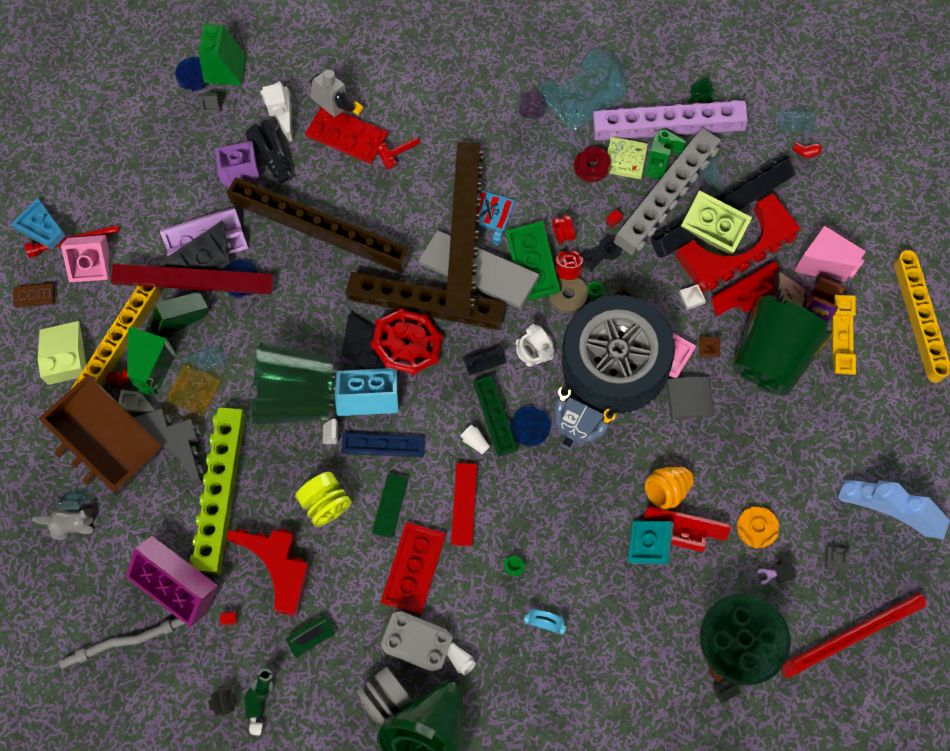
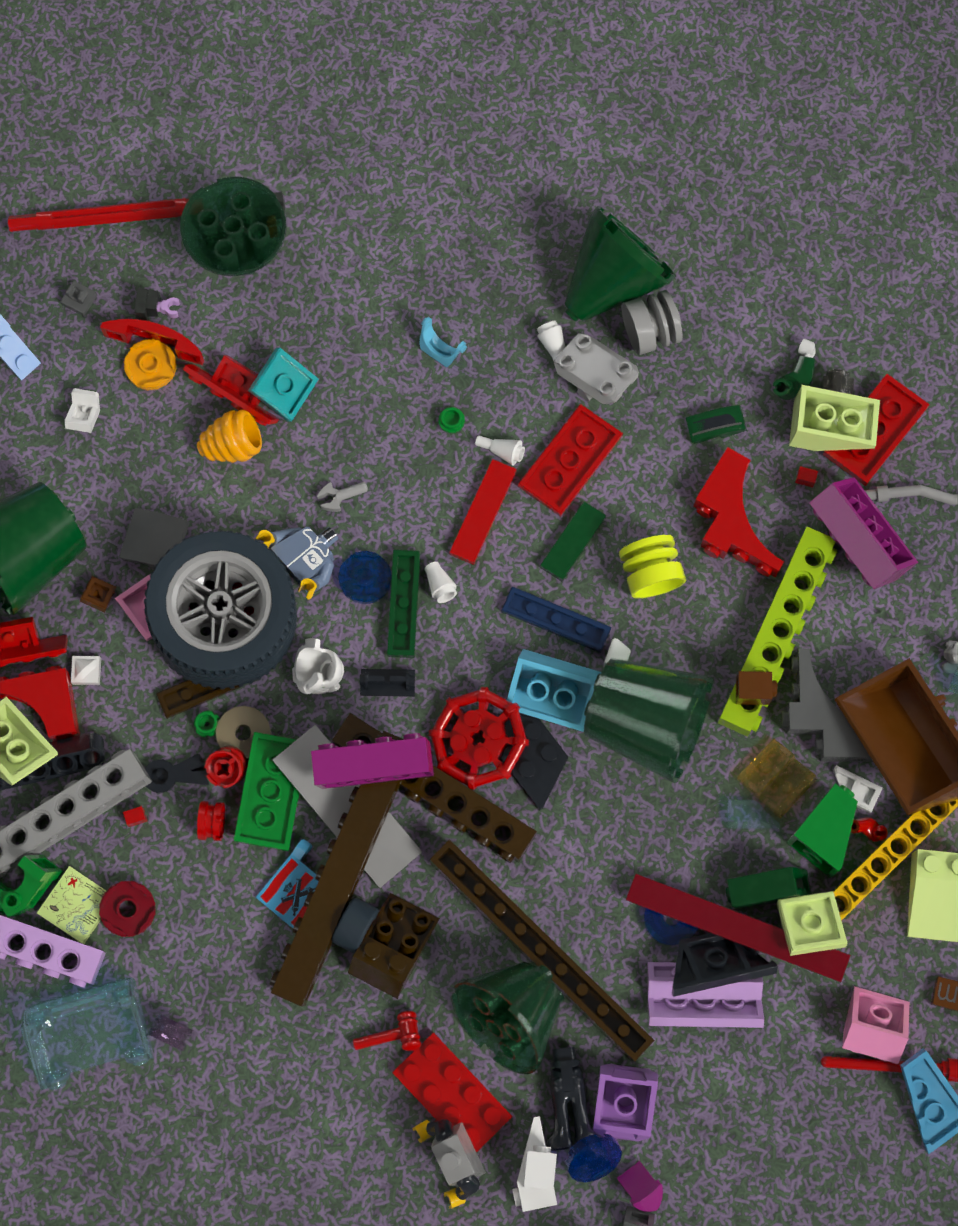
camera: 160 degrees left, 5 degrees up
(140, 292) = (811, 923): none -> yellowish green tile
(183, 678) = (897, 415): none -> red plate
(214, 121) = (642, 1188): none -> magenta tile
(216, 666) = (833, 420): none -> yellowish green slope
(221, 433) = (755, 688): none -> reddish brown brick
(246, 123) = (593, 1158): none -> clear blue tile
(321, 181) = (510, 1013): none -> clear green cone
(414, 201) = (393, 945): none -> dark brown slope
(442, 198) = (354, 924): none -> black wheel
(464, 556) = (508, 450): none -> white cone
(466, 275) = (373, 762): none -> magenta brick
(572, 479) = (340, 495): none -> light grey bar
(737, 546) = (124, 329): none -> red slope
(787, 469) = (83, 410): none -> white bracket

